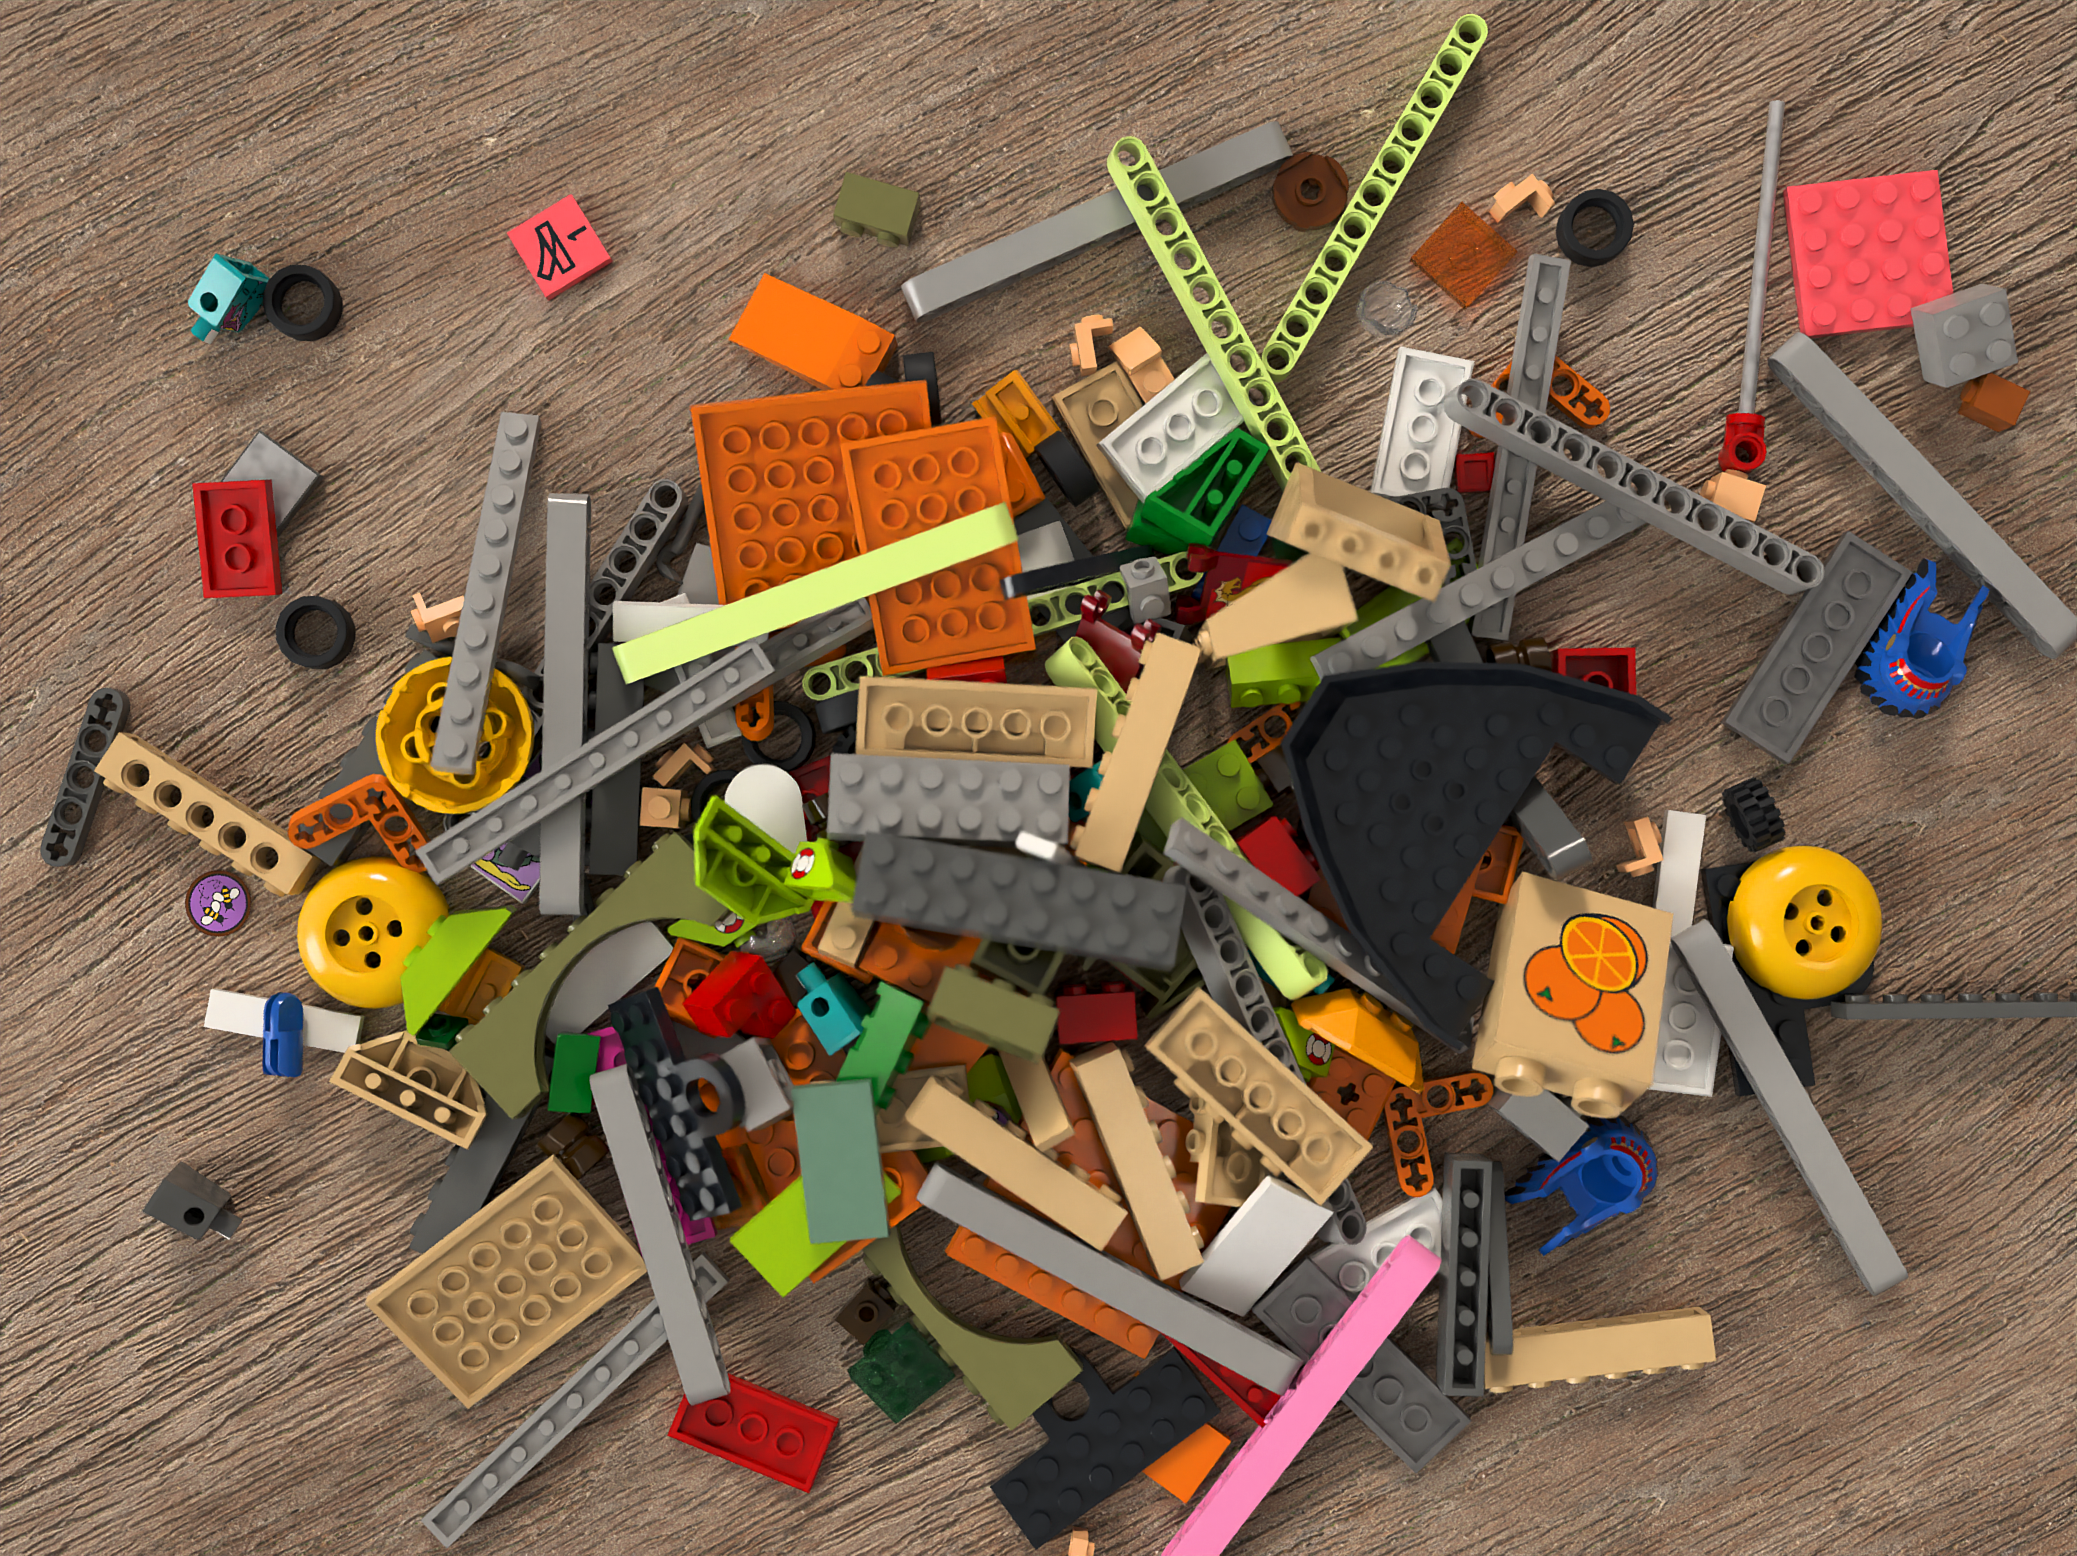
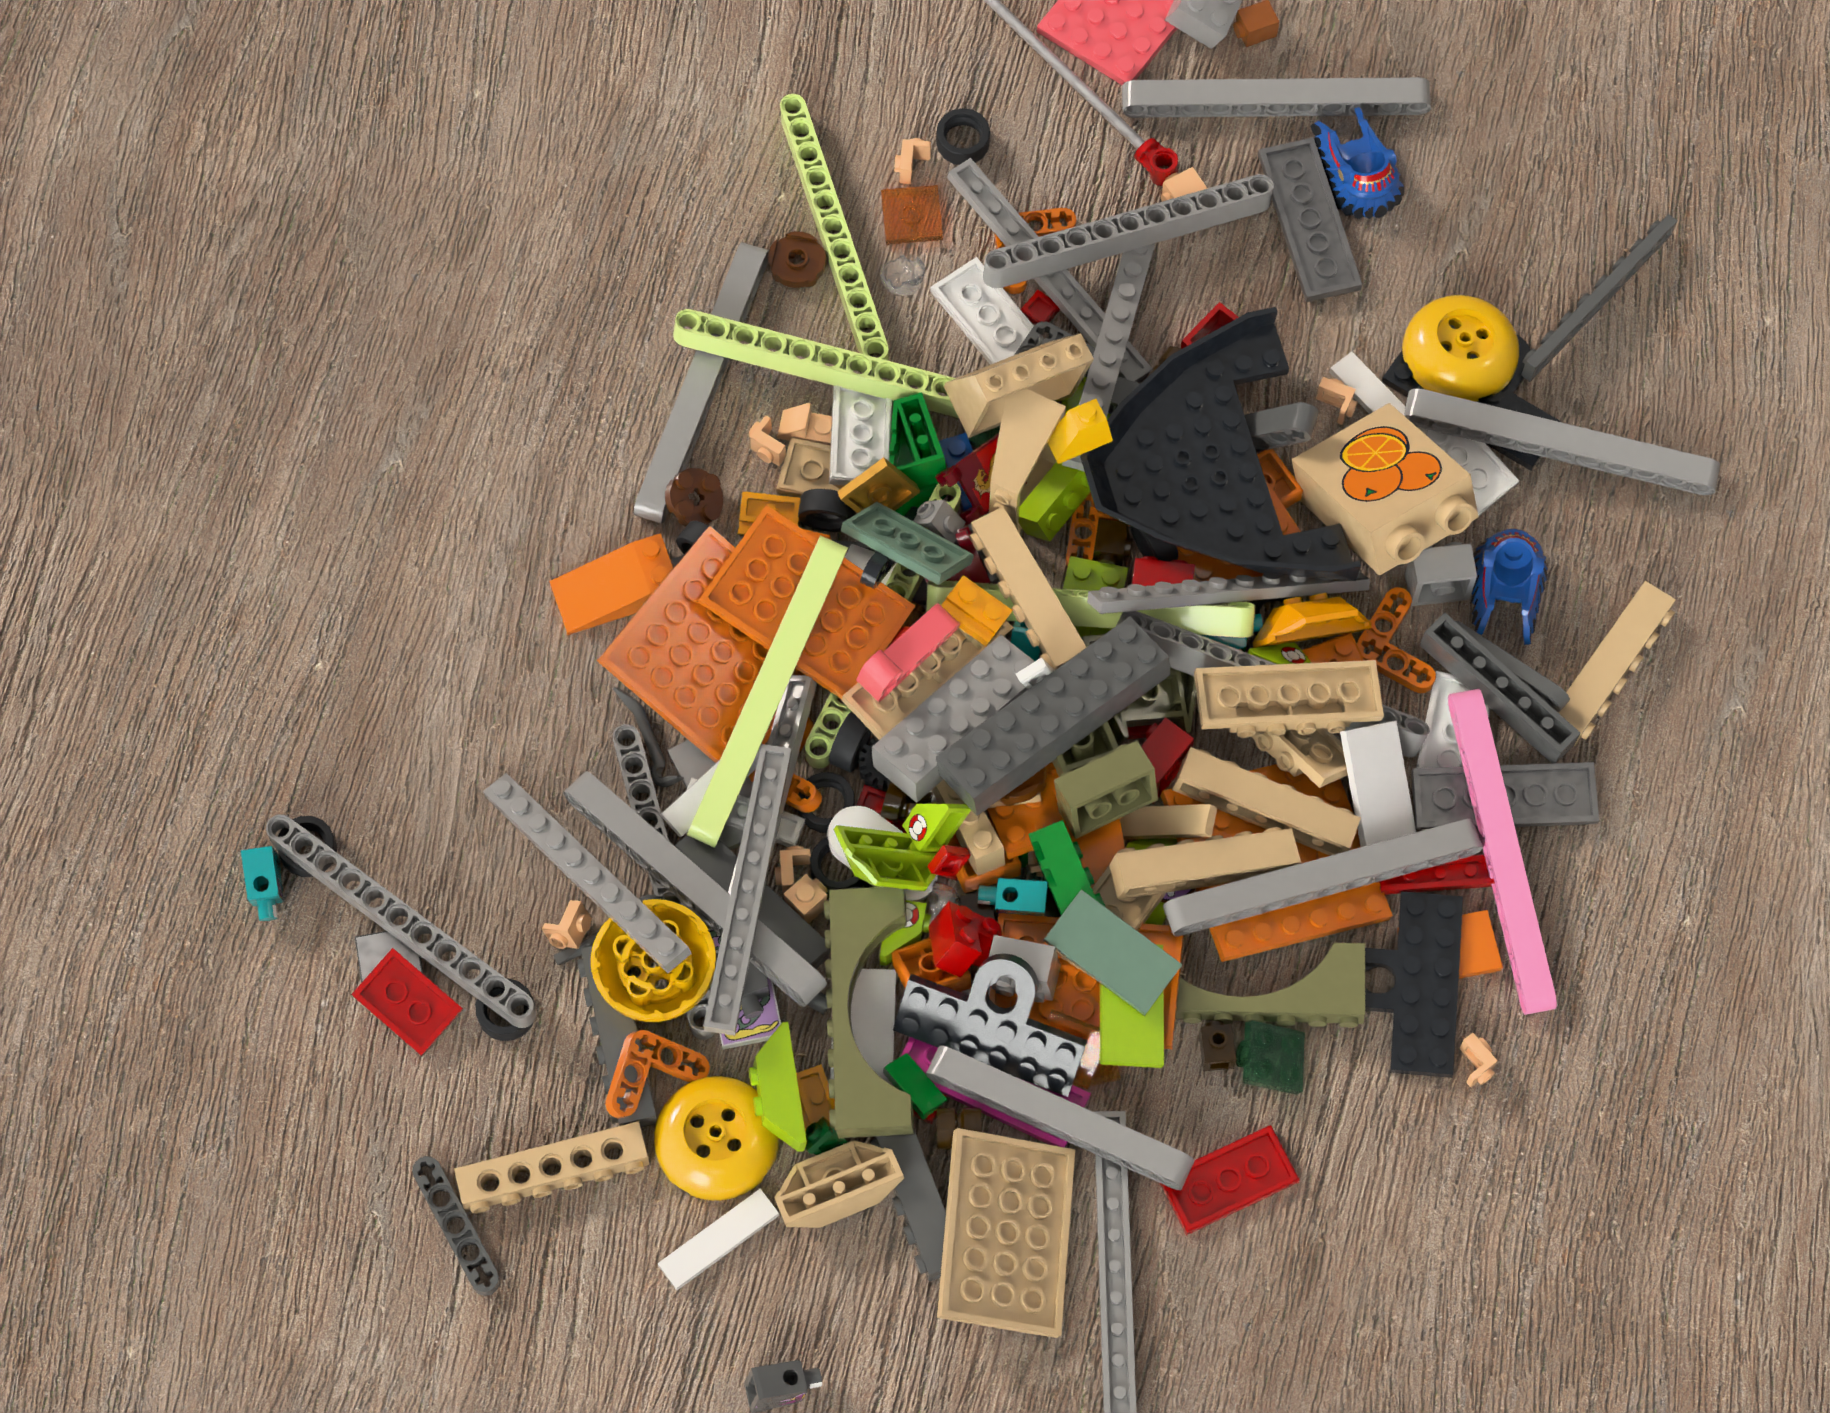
camera: 50 degrees left, 20 degrees down
(218, 903) = (608, 1218): sticker -> none
(282, 447) = (409, 931): none -> light grey beam
(283, 1035) = (730, 1237): blue arm -> none
(559, 247) = (420, 678): coral tile -> none
(799, 920) = (949, 860): none -> red tile
(876, 210) = (577, 488): olive brick -> none
(945, 331) = (709, 492): none -> reddish brown plate
(959, 699) = (889, 668): none -> coral beam
(1070, 718) = (976, 610): none -> light orange plate
(1084, 587) = (907, 543): none -> sand green tile
(1121, 504) = (879, 484): none -> pearl gold plate
(1346, 655) = (1079, 432): none -> yellow slope
(1753, 814) = (1373, 323): black tyre -> none

